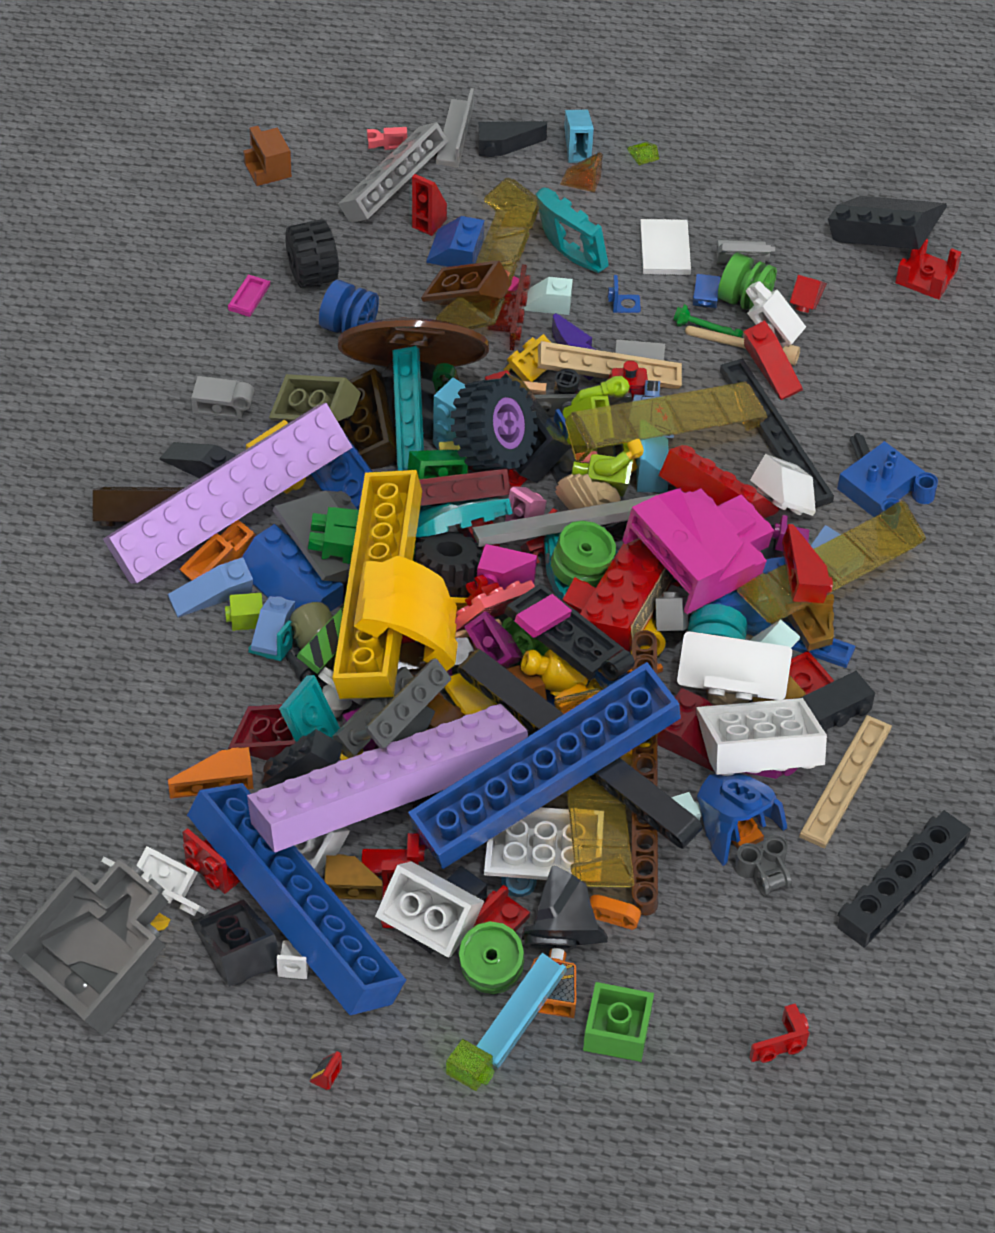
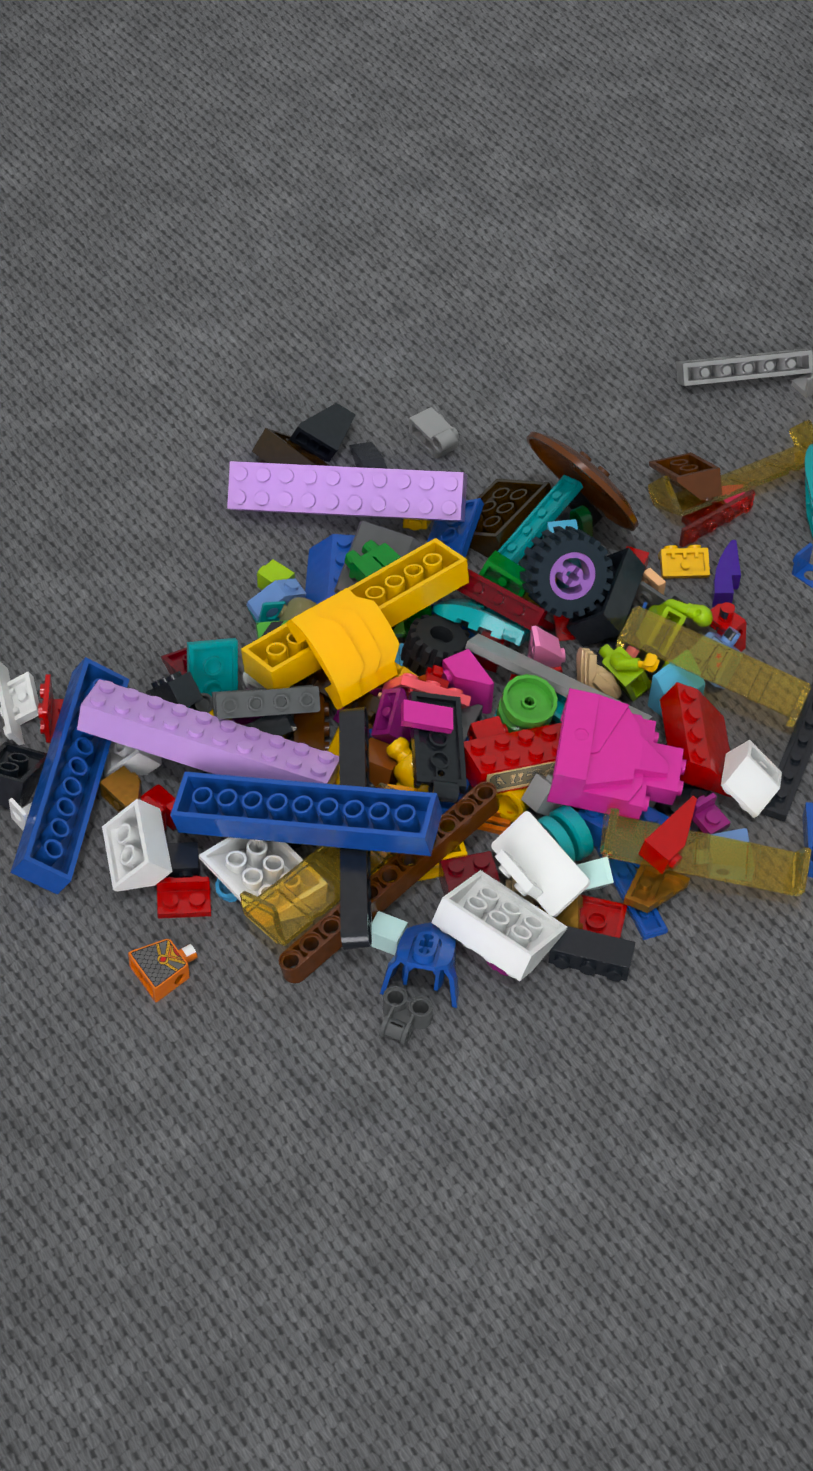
camera: 45 degrees right, 0 degrees up
(136, 460) = (324, 431): none -> black slope
(212, 587) = (281, 547): medium blue slope -> none
(218, 770) = (132, 663): orange slope -> none
(219, 550) = (304, 530): orange slope -> none
(249, 295) = (542, 382): dark pink tile -> none
(269, 156) = (667, 298): dark orange plate -> none
(305, 392) = (486, 476): olive slope -> none
(312, 253) = (608, 379): black wheel -> none
(347, 307) = (589, 432): blue wheel -> none
(389, 139) = (771, 341): coral plate -> none
(428, 205) = (734, 408): red slope -> none
(457, 242) = (733, 449): blue slope -> none
(470, 1065) = (48, 969): clear neon green brick -> none
(496, 941) = (140, 914): bright green wheel -> none
(521, 1008) = (115, 962): medium azure panel -> none
(550, 296) = (753, 529): light aqua slope -> none
(563, 915) = (215, 924): black piece -> none
(566, 382) = (677, 589): black wheel -> none
(600, 363) = (716, 592): tan plate -> none
(615, 911) = (262, 957): orange beam -> none
(618, 1021) = (170, 1025): bright green brick -> none
(641, 349) = (773, 614): light grey tile -> none
(748, 833) = (420, 984): orange tile -> none
(793, 1042) = (268, 1142): red bracket -> none
(845, 782) = (539, 1012): tan tile -> none
(950, 838) = (477, 1116): black brick -> none

